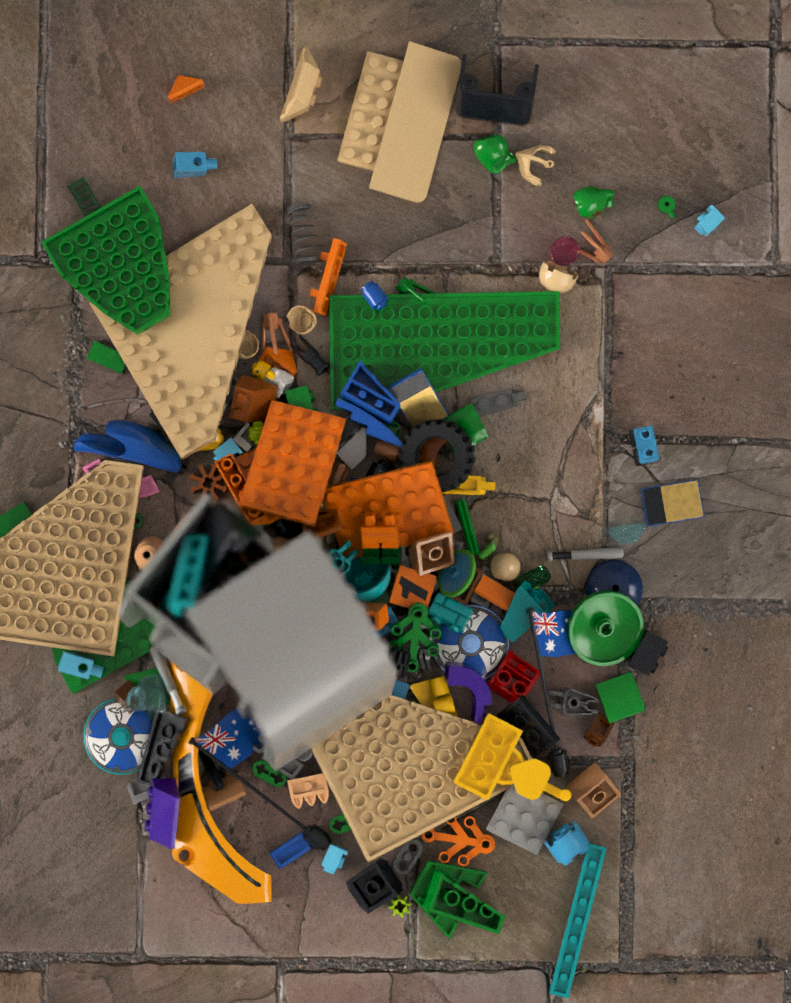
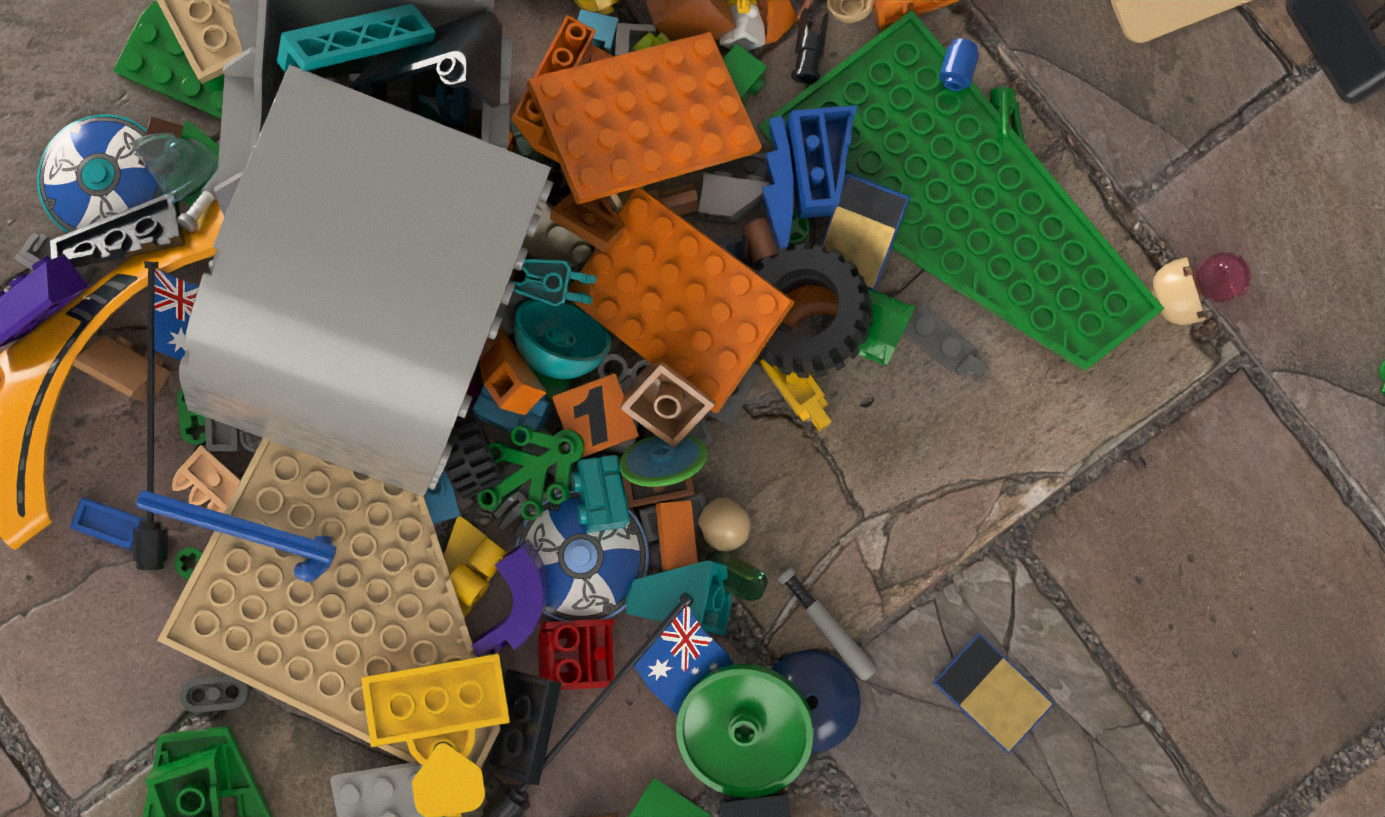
camera: 50 degrees right, 5 degrees down
(70, 661) = (145, 30): medium azure torso -> none
(203, 480) = (531, 29): dark orange gear -> none
(211, 771) = (130, 334): black axle -> none
(333, 858) = (137, 590): medium azure brick -> none
(344, 788) = (236, 527): none -> blue axle
(374, 885) = (140, 678): black slope -> none
(380, 532) = (630, 317): orange hips -> none
(387, 764) = (312, 569): none -> blue arm
(396, 909) = (127, 734): lime gear -> none
(462, 840) = (293, 754): orange plant -> none
(467, 526) = (739, 431): green axle -> none
(490, 547) = (735, 483): arm -> none
(493, 153) = (1275, 82): green piece -> none
(524, 158) = (1299, 130): tan helmet -> none
(570, 700) = (604, 764): dark grey hinge -> none
(593, 200) = (1323, 263): green piece -> none
(602, 252) = (1262, 331): nougat plant -> none
(627, 533) = (901, 661): clear light blue tile -> none
(645, 441) = (1050, 586): dark azure hips -> none

